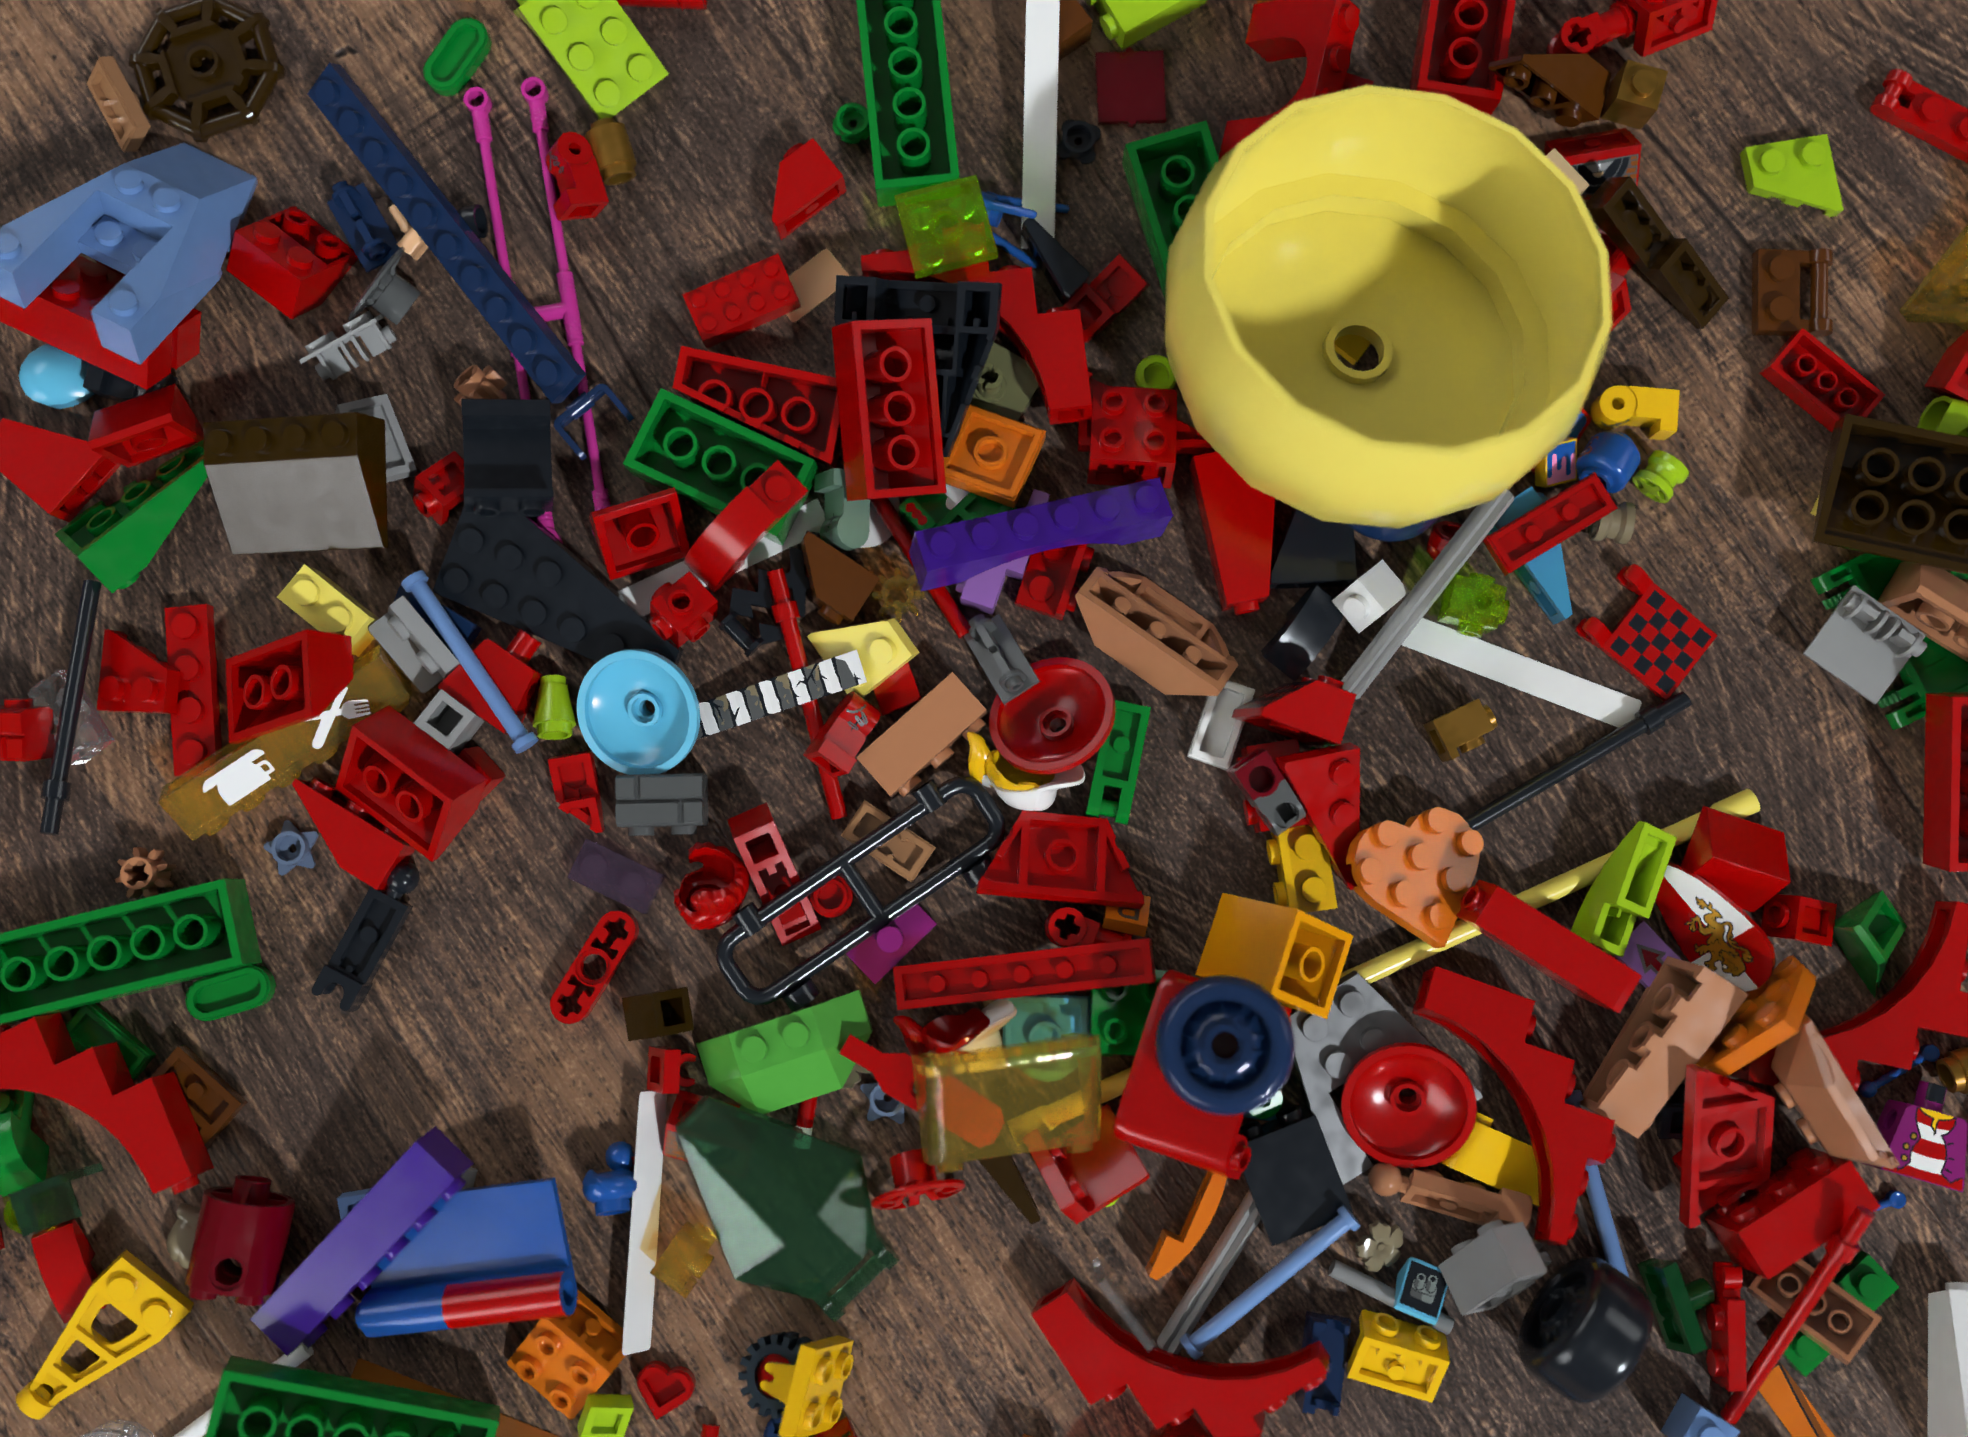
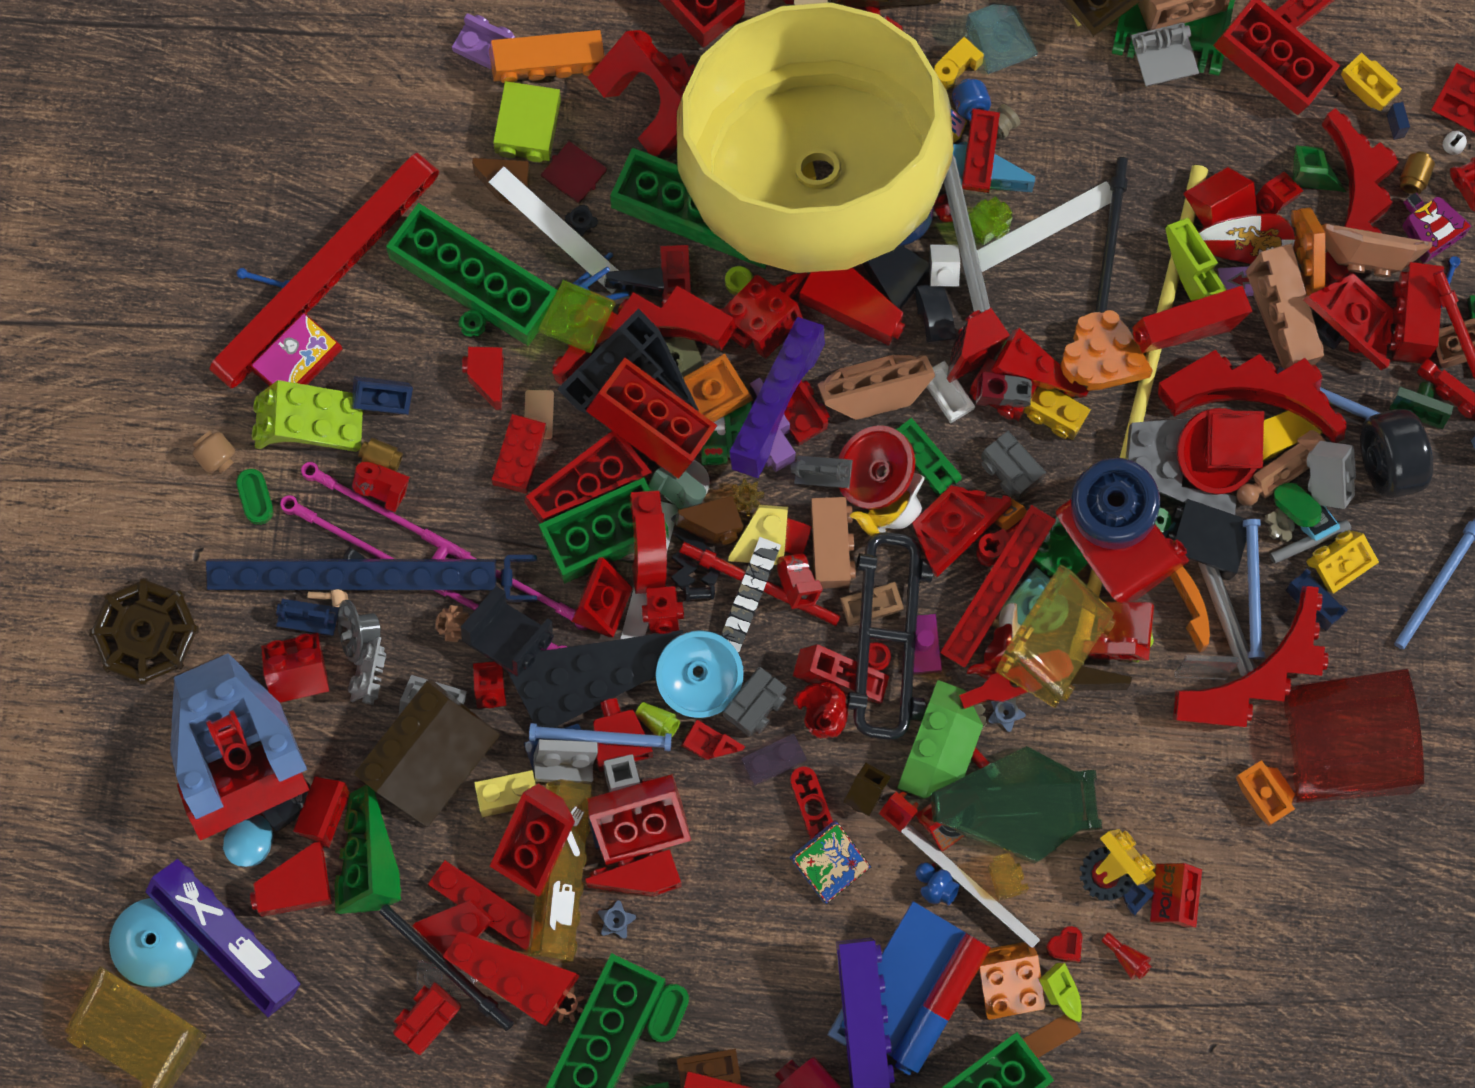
camera: 55 degrees left, 10 degrees down
(105, 788) = (518, 978): none -> red wedge
(110, 247) = (229, 738): none -> red piece
(118, 104) = (125, 692): medium nougat plate -> none
(368, 939) = (700, 912): black plate -> none
(541, 1038) = (830, 862): none -> tile
(682, 92) = (381, 395): none -> dark blue slope
(904, 539) = (728, 473): red bar -> none
(913, 1178) = (1059, 725): red wheel -> none
(1189, 871) = (1012, 466): none -> dark grey brick
(1279, 949) = (1083, 444): light orange slope -> none
(1421, 1251) = (1297, 505): none -> green tile
(1439, 1116) = (1235, 439): none -> red piece
(1460, 729) = (1048, 277): pearl gold brick -> none
(1655, 637) = (1079, 150): red flag -> none
(1660, 476) = (999, 80): lime wheel -> none
(1718, 432) = (1000, 36): none -> clear light blue slope
(1926, 1053) = (1394, 189): blue hinge -> none

